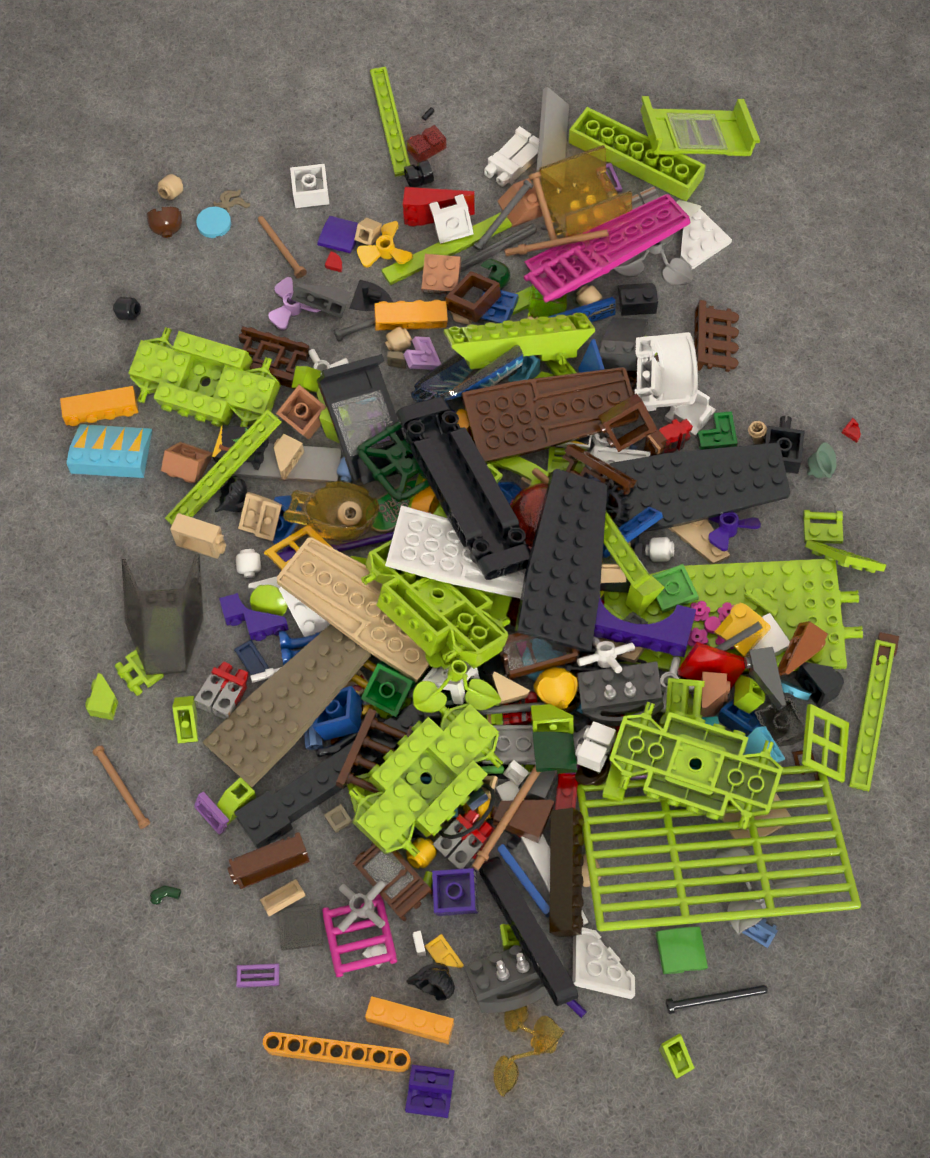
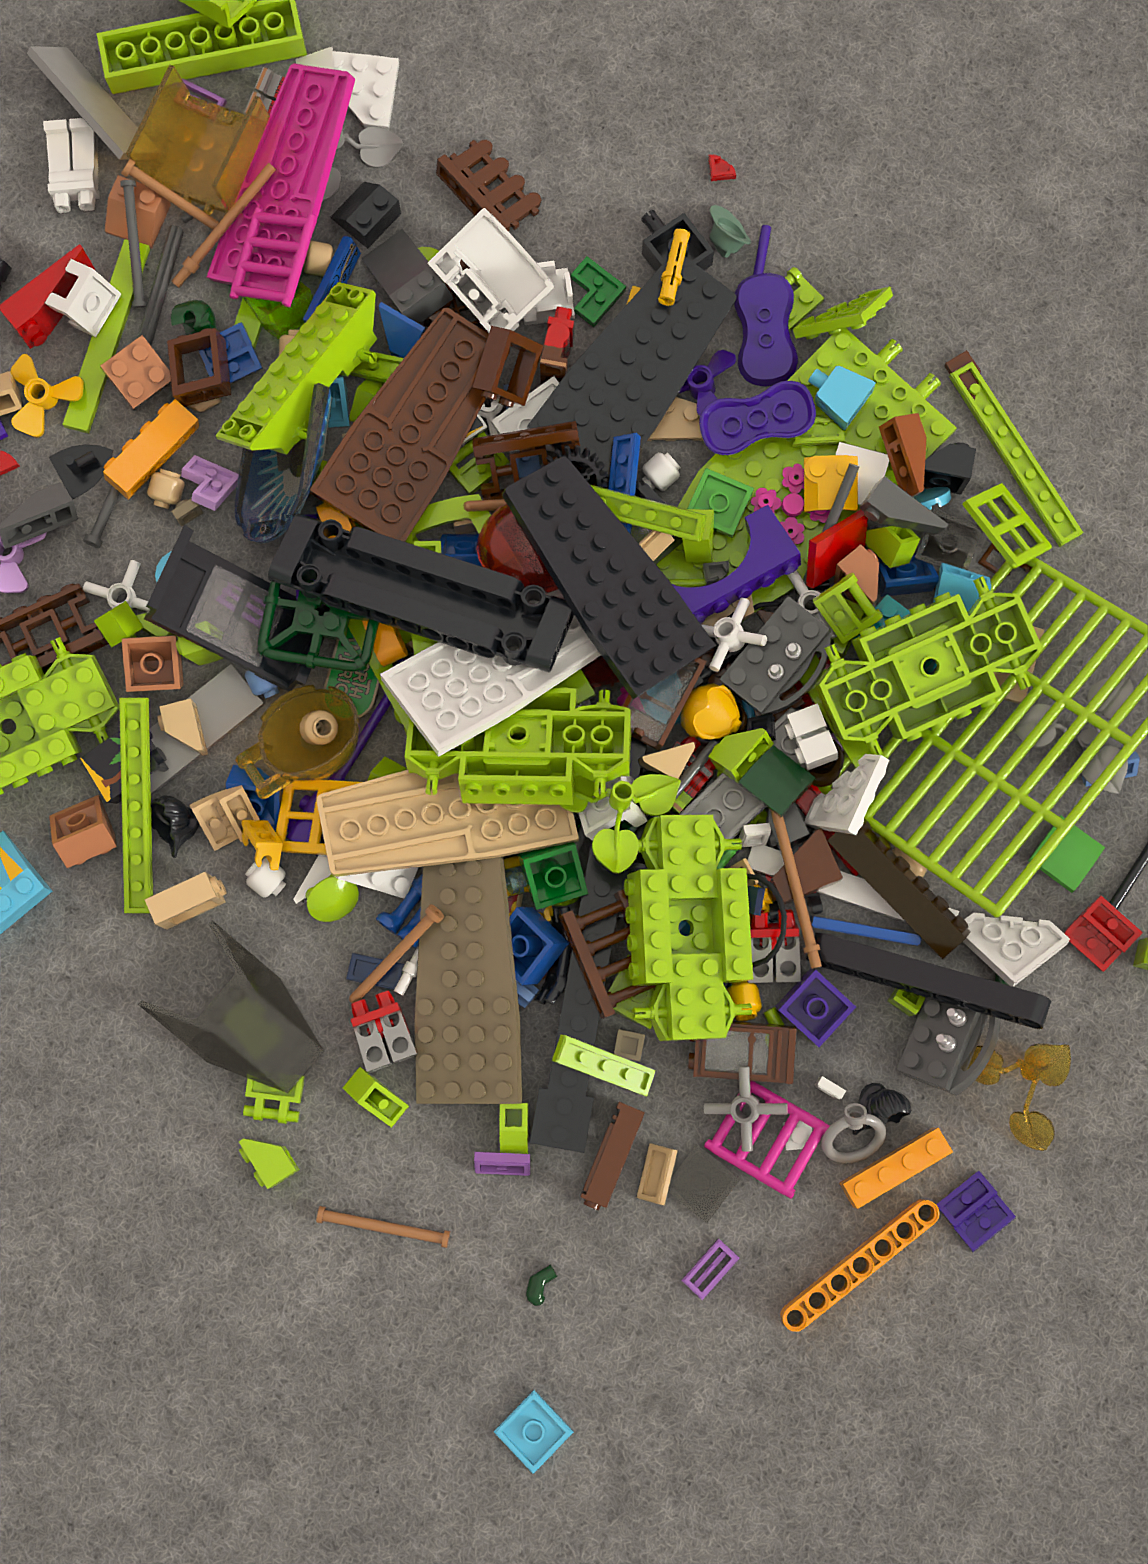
camera: 45 degrees left, 15 degrees up
(81, 965) = (533, 1431): none -> medium azure tile
(258, 623) = (343, 930): dark purple arch -> none
(264, 540) = (264, 841): none -> yellow hinge
(306, 651) = (432, 915): none -> medium nougat bar
(313, 811) = (603, 1065): none -> tile
(365, 676) = (515, 881): none -> clear light blue plate
(413, 966) = (854, 1117): none -> light grey piece
(443, 953) = (857, 1073): yellow tile -> none
(572, 797) = (848, 801): none -> white plate
(656, 1010) = (1102, 933): none -> red slope
(750, 569) = (779, 411): none -> dark purple plate
(757, 432) = (636, 255): tan cone -> none
(760, 452) = (668, 289): none -> yellow pin
(796, 590) = (841, 394): none -> medium azure torso
(801, 517) = (764, 311): none -> dark purple plate
(826, 494) = (762, 249): none -> dark purple bar

